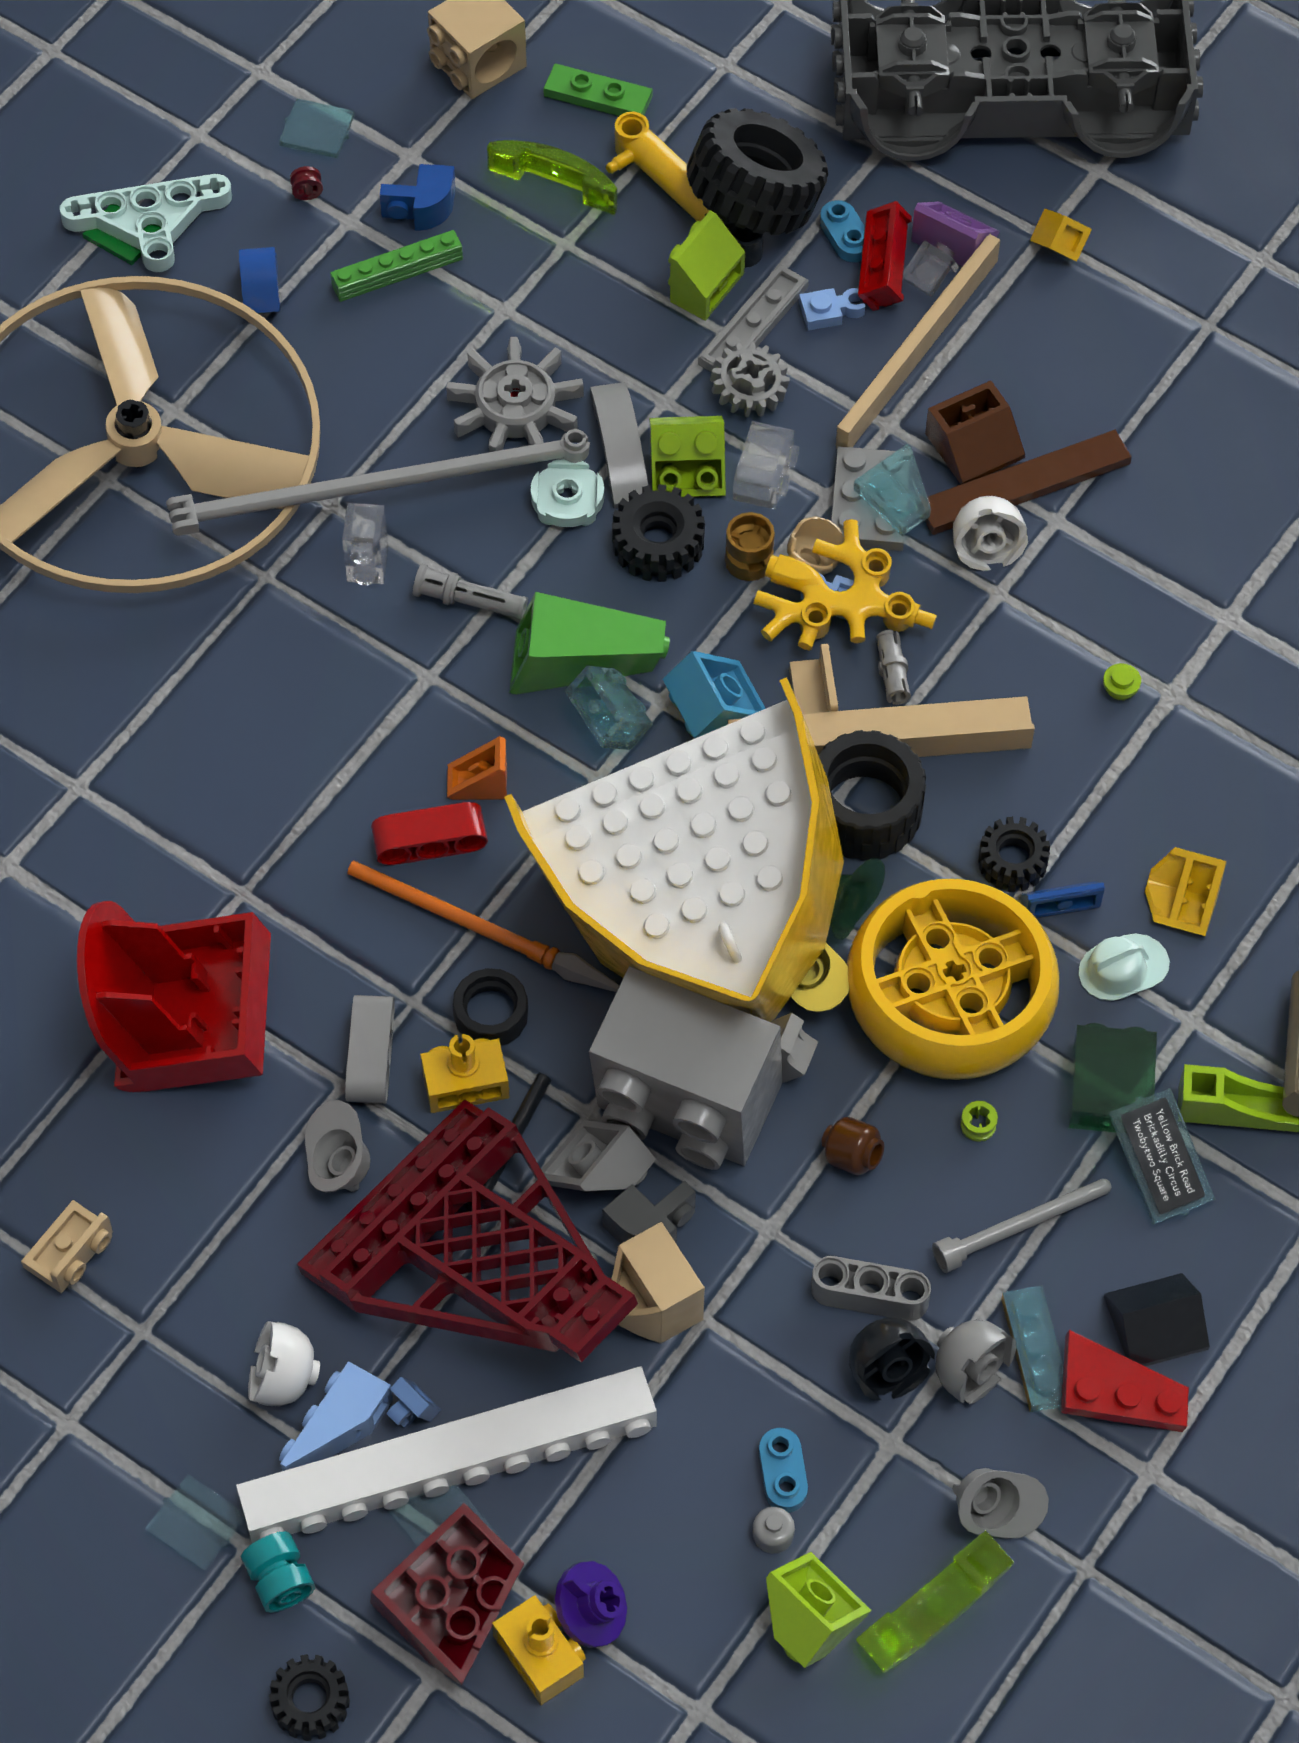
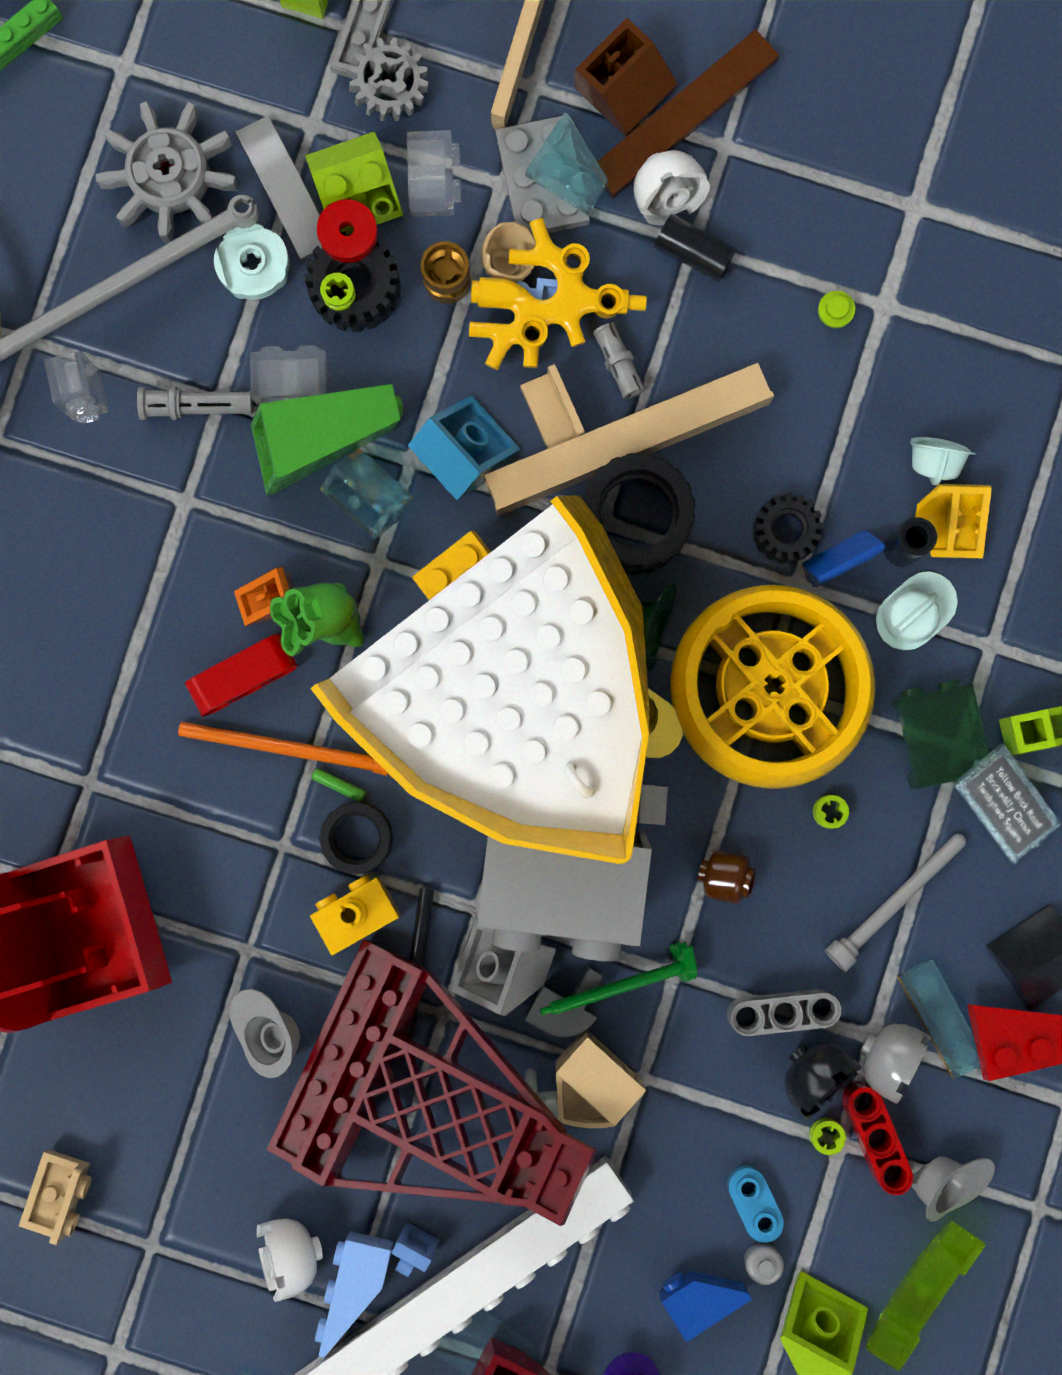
camera: 15 degrees left, 25 degrees up
(370, 1049) = (260, 914): light grey beam -> none
(485, 956) = (338, 785): none -> bright green piece
(525, 772) = (317, 613): none -> bright green animal
(571, 583) = (288, 374): none -> clear brick
(647, 521) = (335, 302): none -> lime bush
(667, 469) = (344, 214): none -> red piece
(695, 1540) = (700, 1300): none -> blue slope
(780, 1216) = (682, 966): none -> green piece
(868, 1420) = (838, 1139): none -> lime bush
(928, 1454) = (887, 1153): none -> red beam
(998, 591) = (694, 247): none -> black pin
(1130, 889) = (922, 535): none -> black pin
(1183, 823) = (938, 458): none -> light aqua piece

